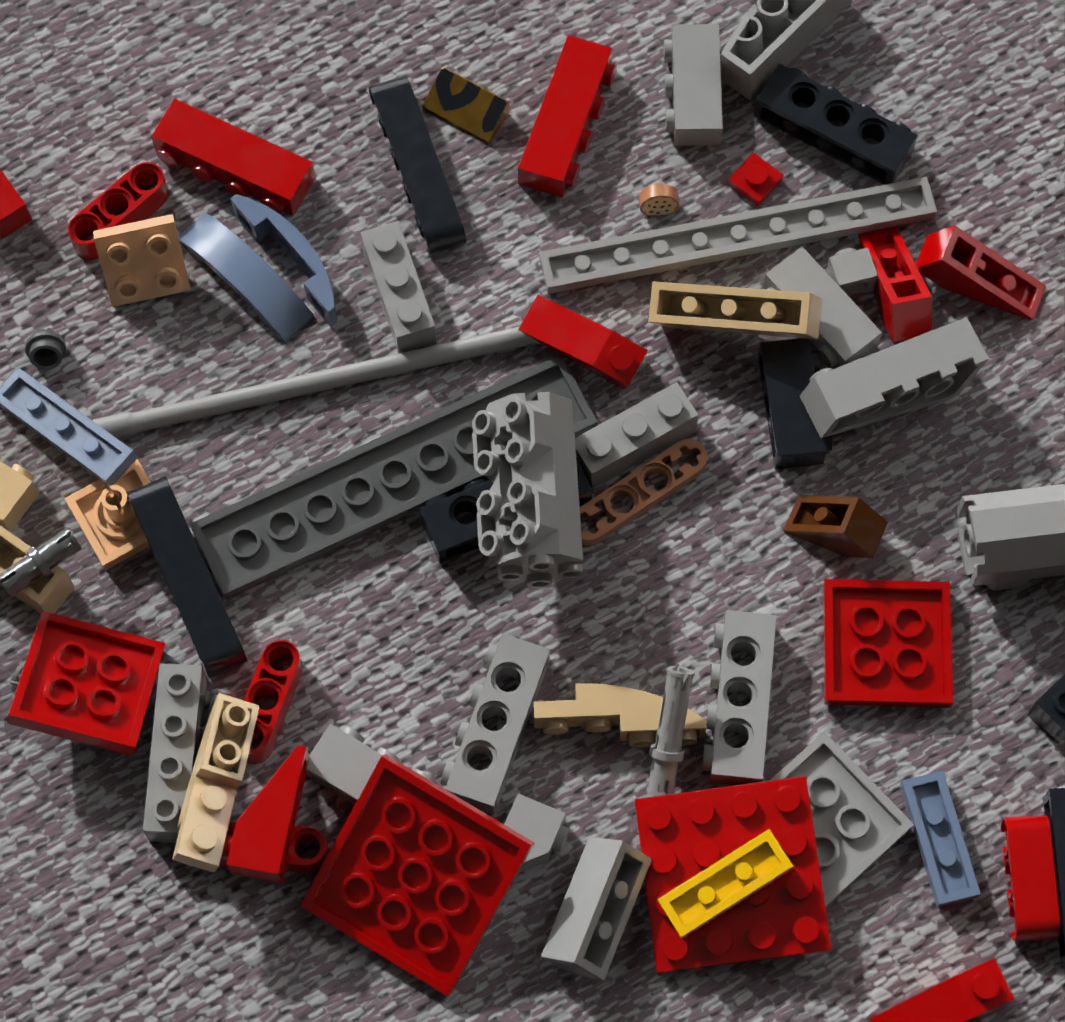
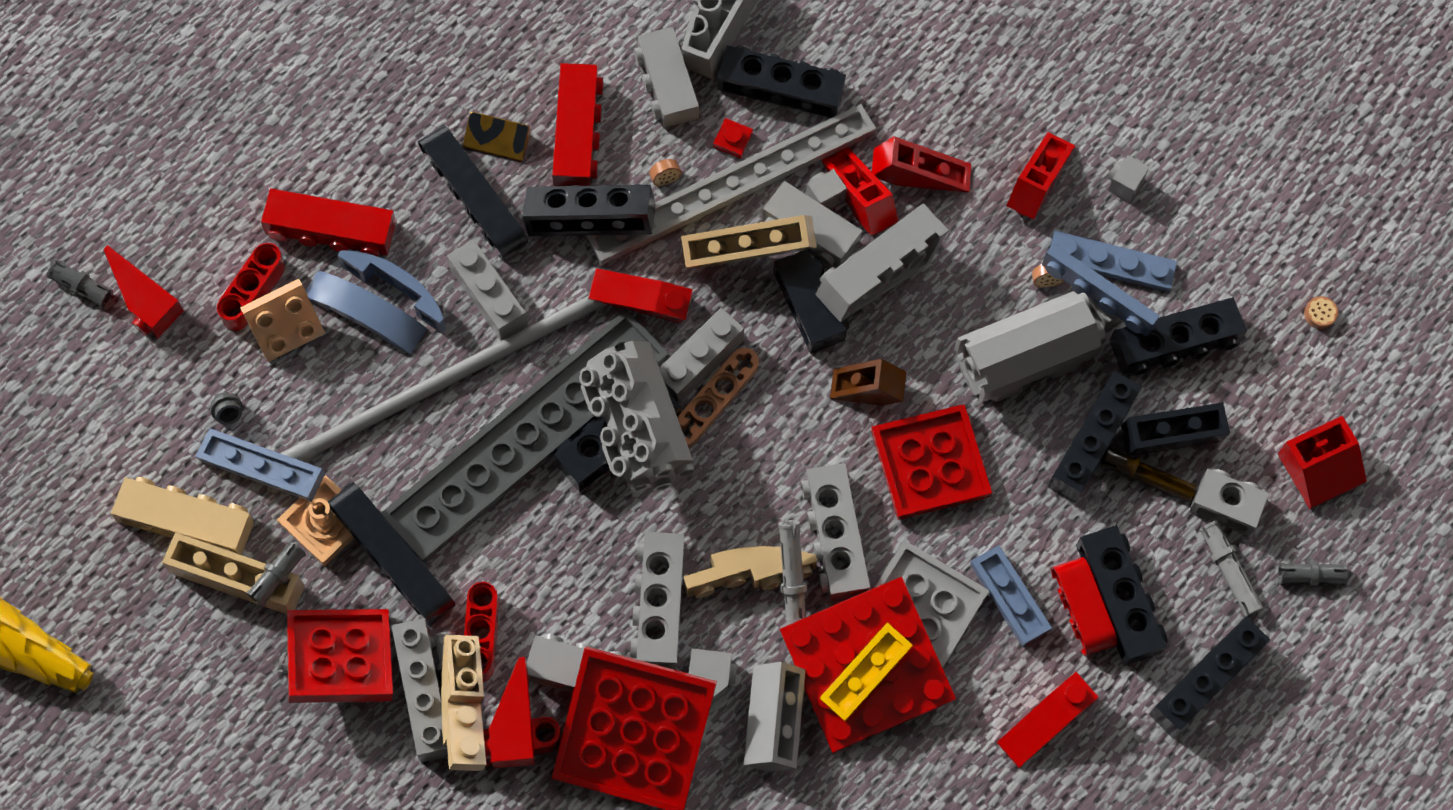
camera: 20 degrees left, 0 degrees up
(551, 222) = (589, 210): none -> black brick

